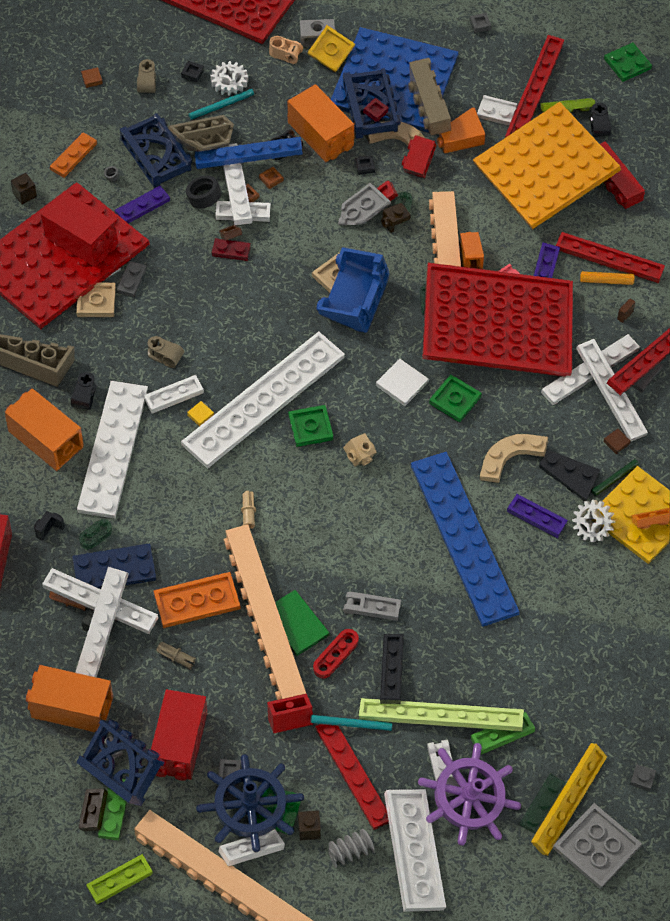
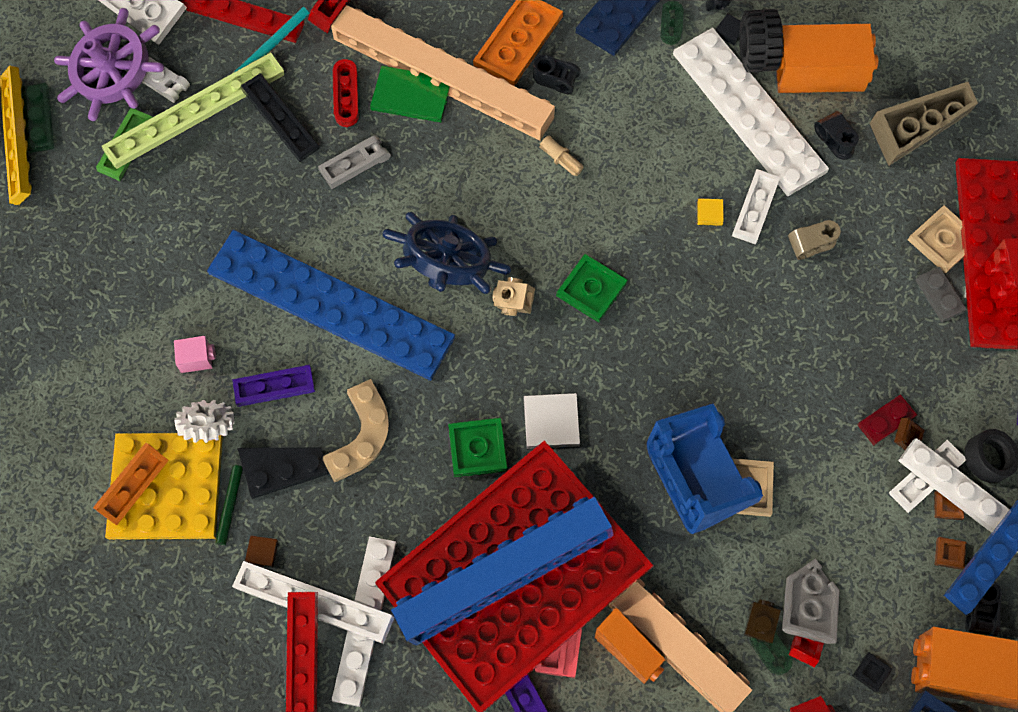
camera: 140 degrees right, 10 degrees up
(66, 502) = (729, 29): none -> black tile
(67, 465) = (761, 40): none -> black tyre
(199, 555) = (556, 74): none -> black piece
(262, 400) = (666, 281): white plate -> none
(377, 492) = (446, 253): none -> dark blue piece
(506, 308) = (502, 571): none -> blue brick
(568, 566) = (194, 354): none -> bright pink brick

